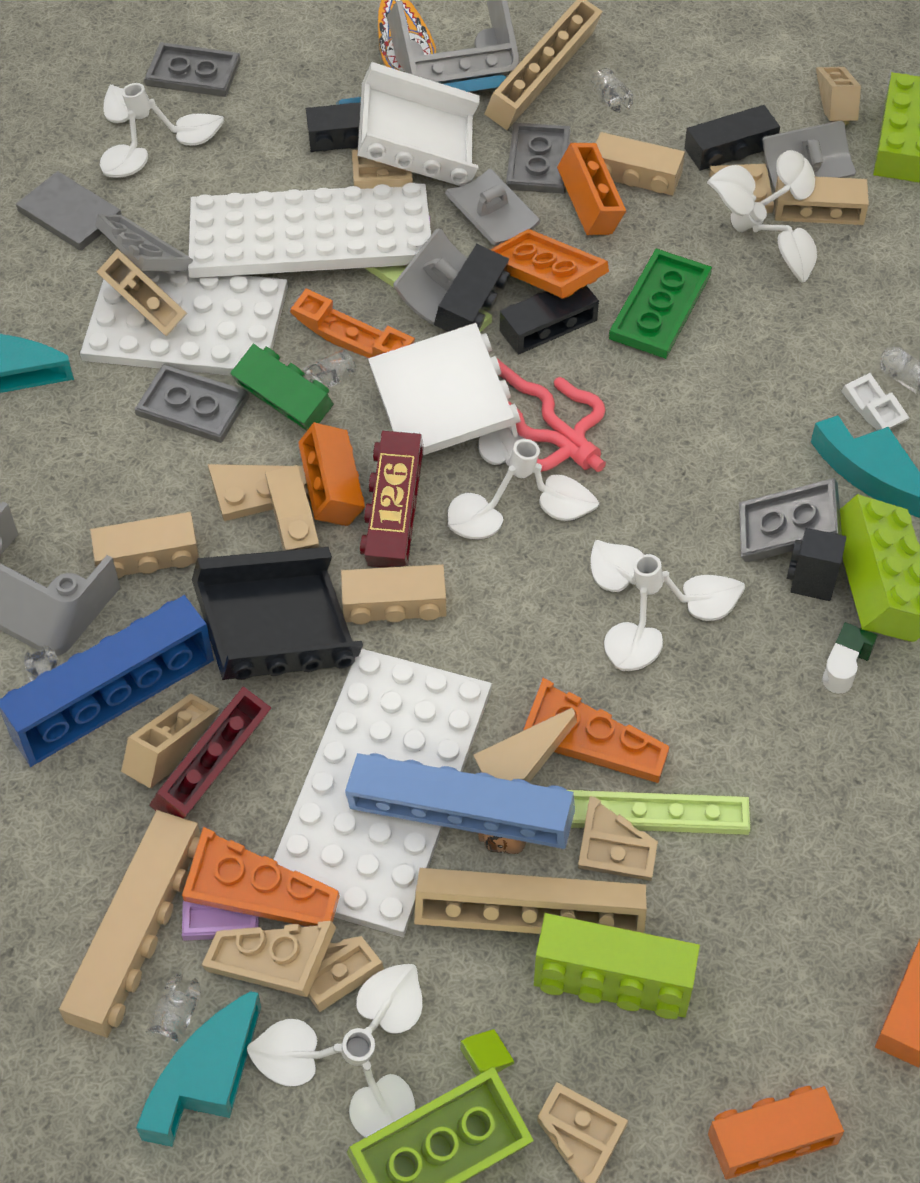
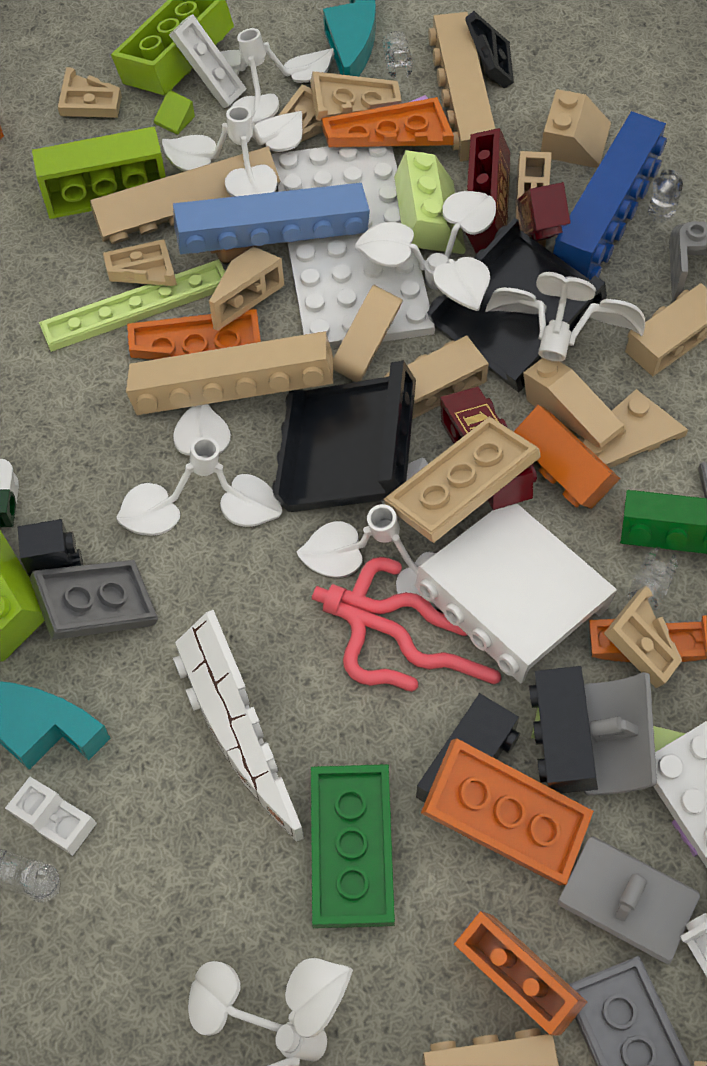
camera: 155 degrees right, 5 degrees up
(65, 803) = (575, 130): none -> tan slope
(68, 947) = (492, 49): none -> black wing
(200, 645) = (544, 211): none -> dark red brick
(262, 503) = (557, 336): none -> white plant
(284, 767) = (421, 192): none -> yellowish green slope
(361, 709) = (462, 280): none -> white plant
(372, 322) = (645, 639): none -> tan wing
(419, 1071) = (207, 61): none -> white plate
(432, 650) = (366, 333): none -> tan beam
(442, 449) = (462, 478): none -> tan tile
(456, 856) = (277, 132): none -> white plant
(509, 559) = (345, 442): none -> black panel
(585, 656) = (230, 373): none -> tan brick
(712, 405) = (236, 728): none -> white wedge

